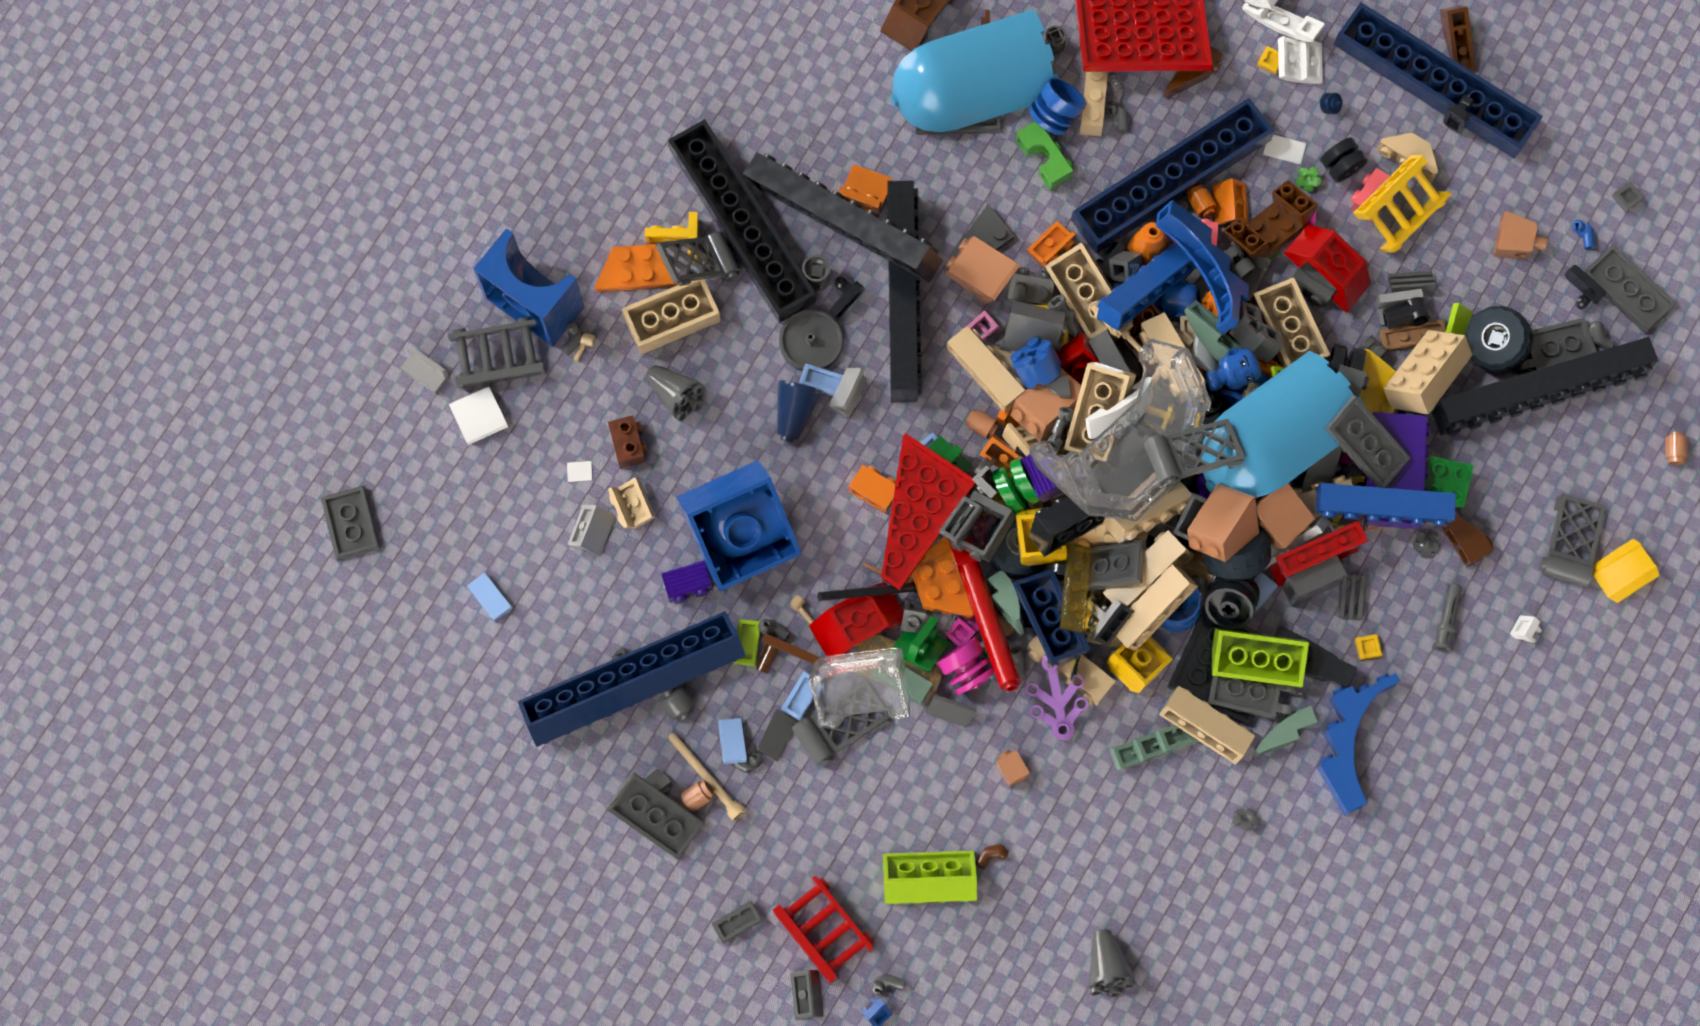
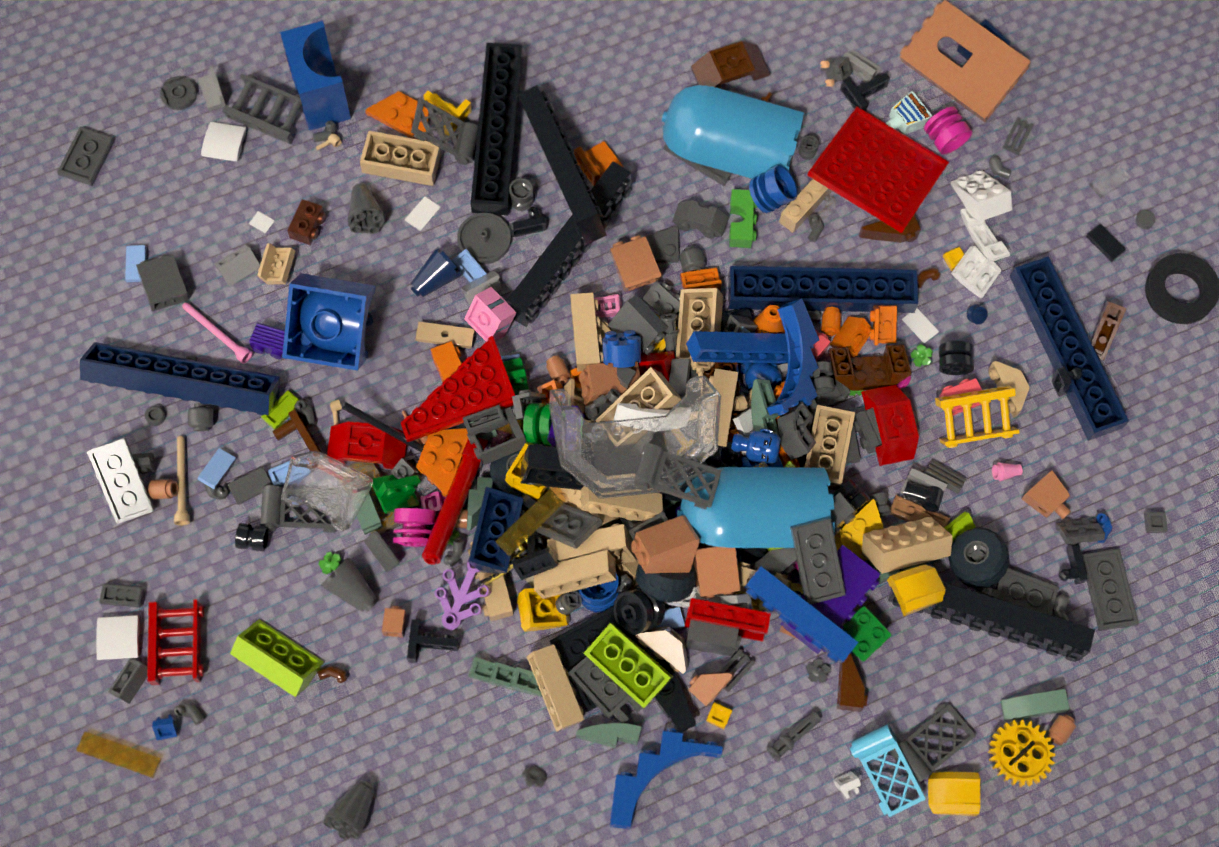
camera: 30 degrees right, 5 degrees down
(391, 396) = (178, 93): none -> dark grey tile
(533, 597) = (162, 282): none -> dark grey brick
(629, 732) = (155, 415): none -> dark grey tile
(665, 613) = (242, 353): none -> bright pink piece
(730, 356) = (422, 213): none -> white sticker
(765, 963) = (117, 637): none -> white slope
(818, 782) = (255, 537): none -> black wheel
(835, 467) = (433, 334): none -> tan tile
(881, 414) = (490, 315): none -> bright pink container
(908, 755) = (330, 563): none -> bright green plant
(947, 763) = (350, 586): none -> dark grey cone
(997, 185) = (708, 221): none -> dark grey brick
(1027, 228) = (692, 259): none -> dark grey head
(1056, 764) = (428, 641): none -> black bracket
(1161, 638) = (568, 602): none -> dark grey wheel
(1254, 171) = (884, 324): none -> orange bracket
(1257, 92) = (927, 274): none -> reddish brown arm
(1277, 615) = (666, 645): none -> slope
(1342, 625) = (709, 685): none -> nougat slope
(1462, 239) = (1004, 471): none -> bright pink cone
(1469, 407) = (917, 588): none -> yellow slope
(1527, 577) = (871, 747): none -> medium azure piece
(1568, 251) = (1080, 531): none -> flat silver plate
(1638, 442) = (1035, 705): none -> sand green slope
(1676, 500) = (1034, 767): none -> yellow gear

